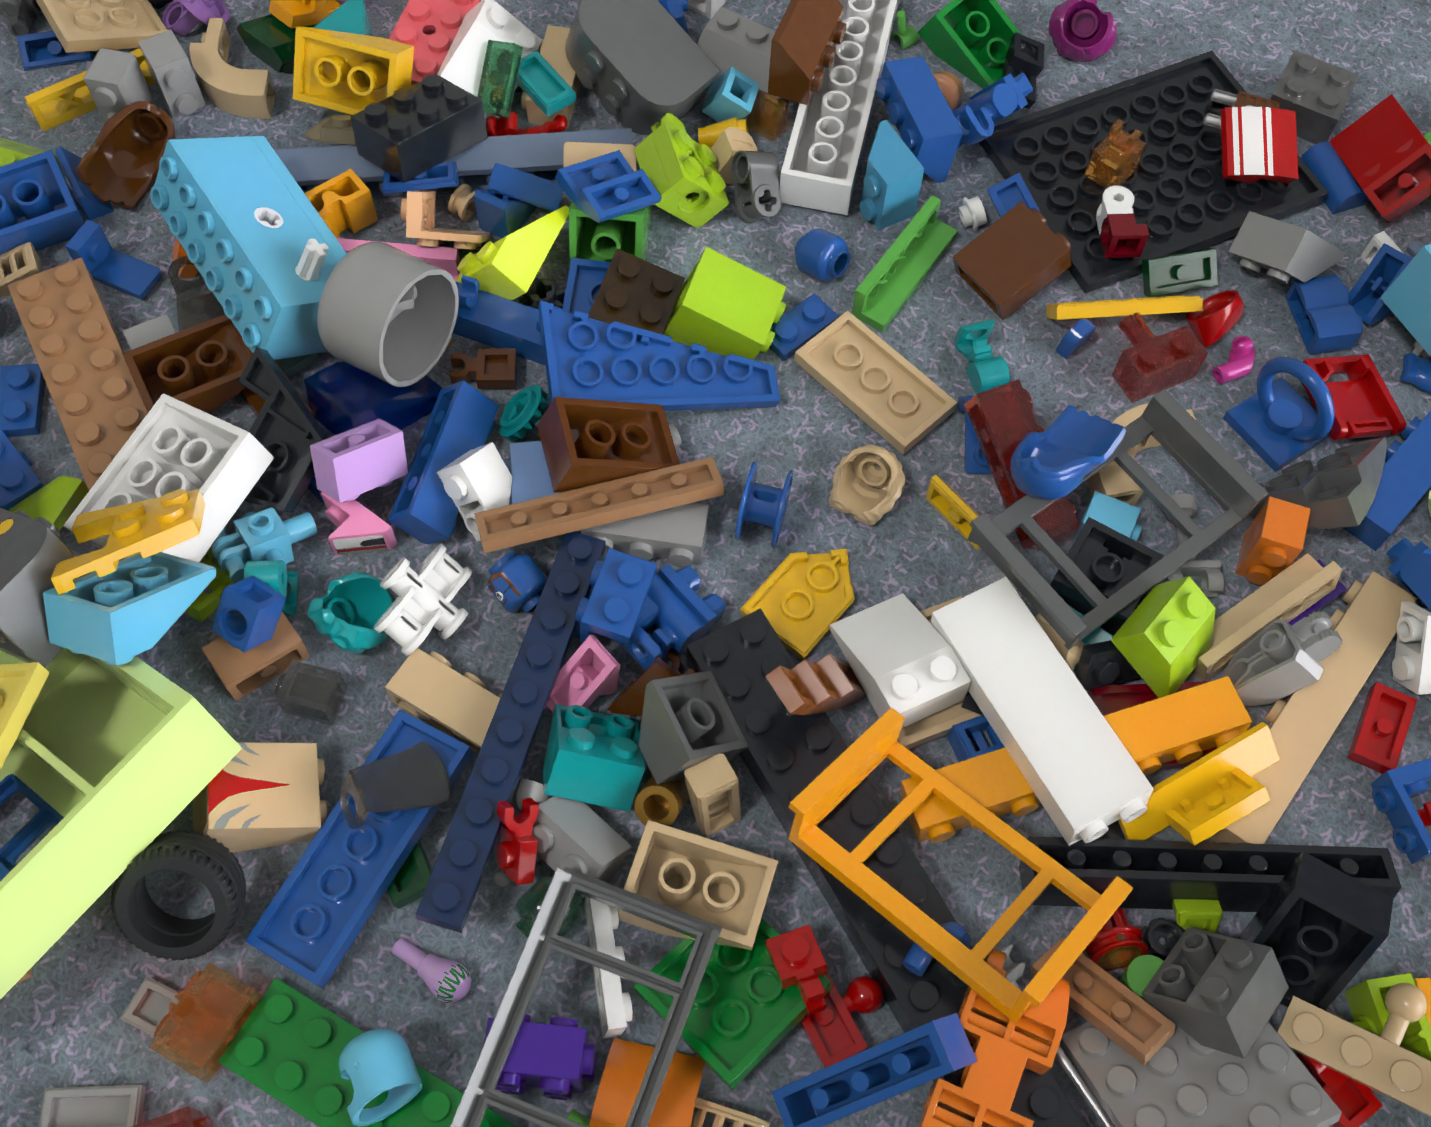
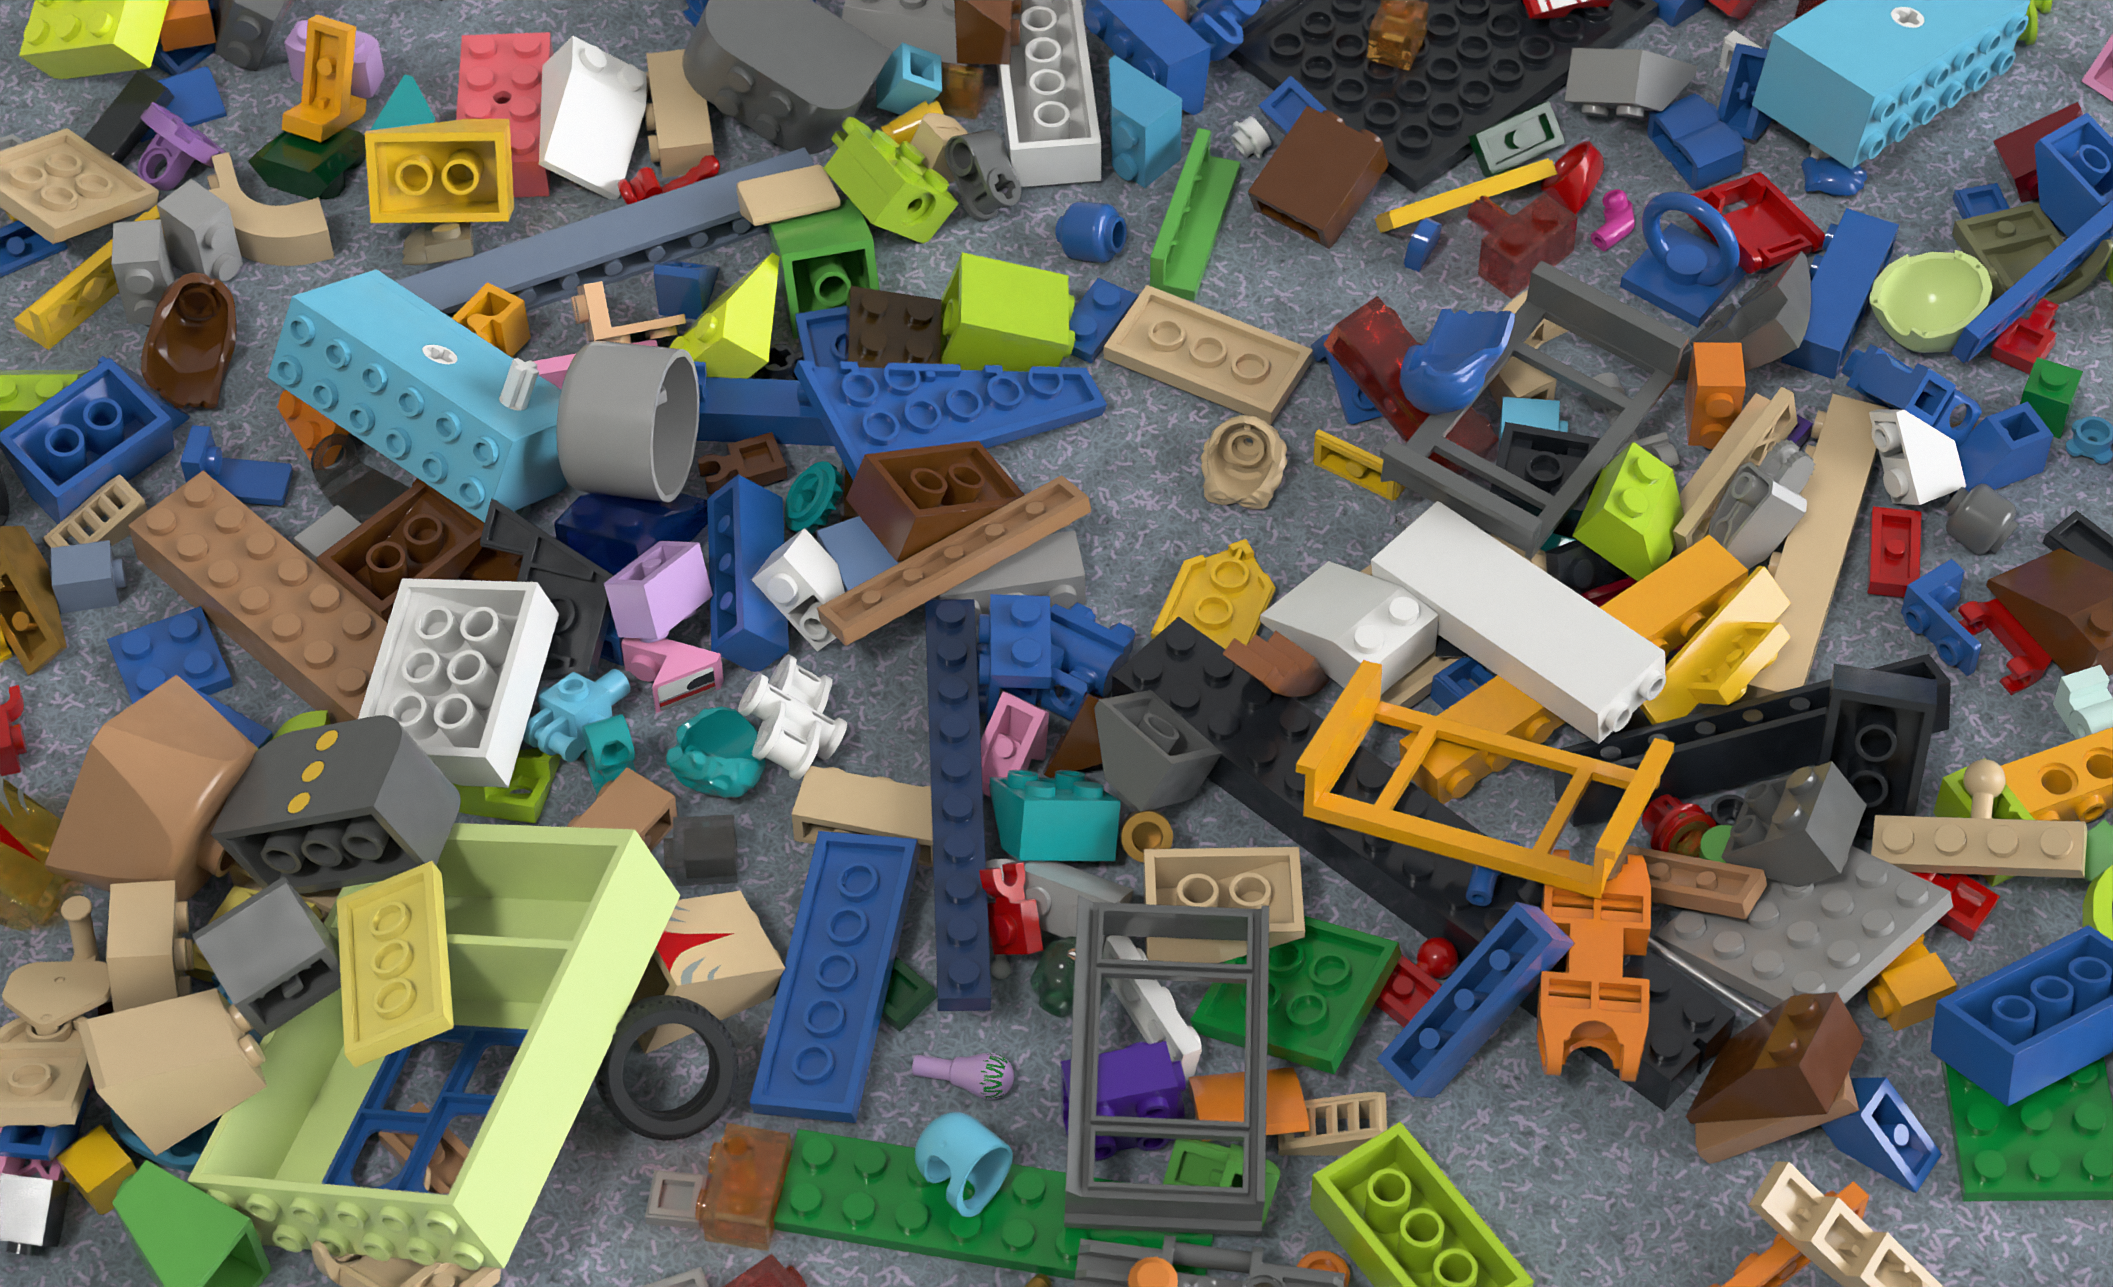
camera: 15 degrees left, 10 degrees down
(124, 609) = (497, 783): medium azure slope -> none
(132, 528) = (467, 706): yellow wing -> none
(248, 613) = (623, 757): blue brick -> none
(397, 782) = (857, 890): clear smoke piece -> none
(419, 127) = (553, 212): black brick -> none
(437, 177) = (574, 271): blue slope -> none
(462, 202) = (632, 288): tan bush -> none
(499, 77) = (620, 131): clear green plate -> none
(517, 582) = (888, 675): blue head -> none
(525, 187) = (705, 248): blue slope -> none
(544, 84) = (673, 123): teal tile -> none
(607, 187) = (816, 218): blue slope -> none
(713, 794) = (1203, 804): tan slope -> none
(763, 504) = (1138, 513): blue piece -> none
(800, 963) = (1360, 931): red plate -> none
(984, 370) = (1326, 304): teal leg -> none
(1117, 224) = (1427, 105): dark red leg -> none
(1197, 914) = (1747, 775): lime tile -> none

